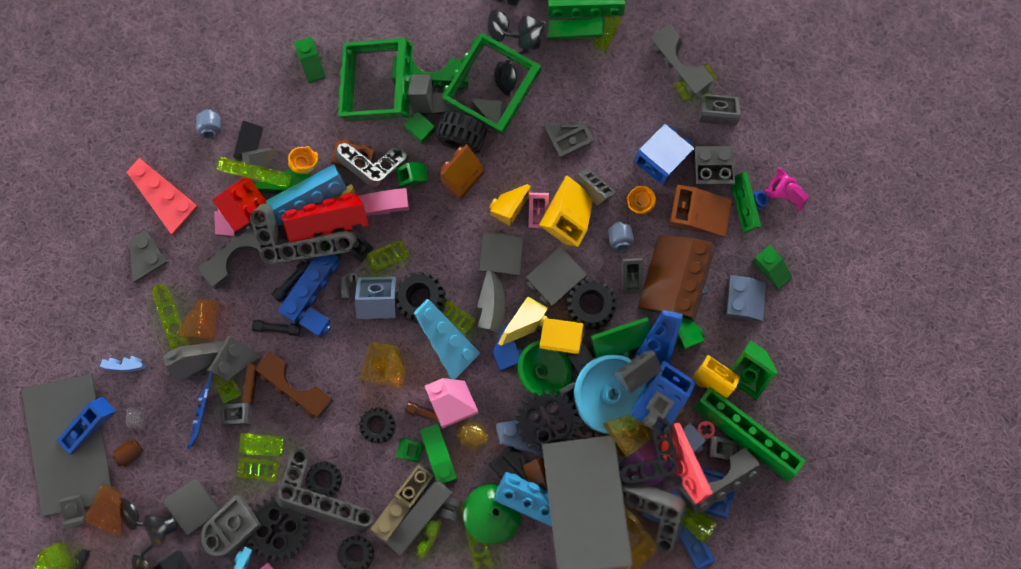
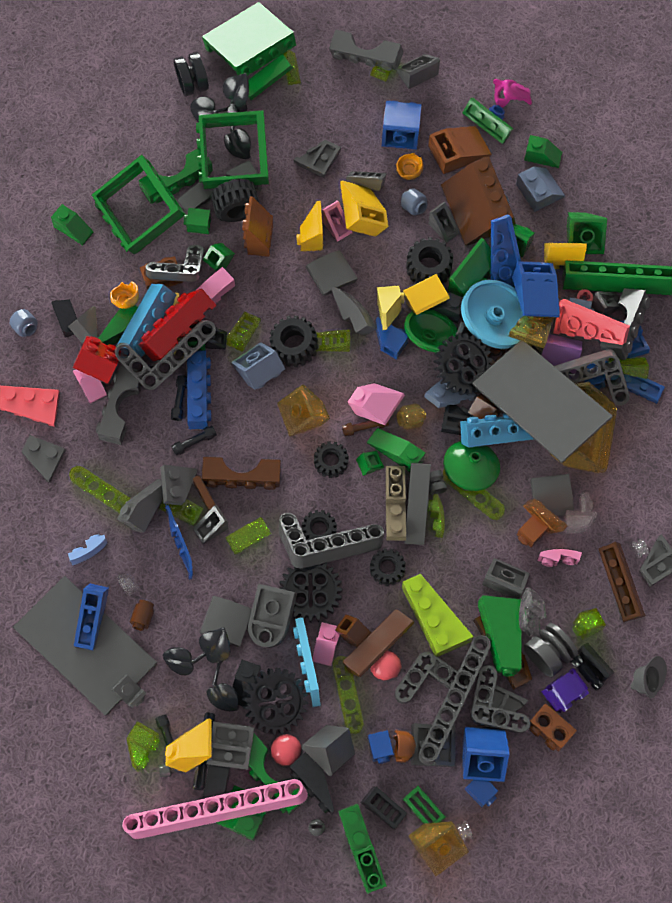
camera: 35 degrees left, 10 degrees down
(106, 510) = (157, 672): clear orange wing -> none
(200, 320) = (127, 474): clear orange wing -> none
(239, 474) = (248, 570): clear neon green slope -> none
(253, 172) = (90, 329): clear neon green beam -> none
(315, 323) = (223, 414): blue brick -> none
(345, 284) = (225, 372): dark grey arm -> none
(421, 93) = (182, 192): dark grey slope -> none
(447, 341) = (339, 357): medium azure wing -> none
(555, 277) = (387, 261): dark grey panel -> none
(638, 371) = (505, 278): dark grey slope -> none
(658, 407) = (541, 294): dark grey plate -> none
(658, 470) = (570, 337): black beam -> none
(713, 165) = (444, 107): dark grey slope -> none

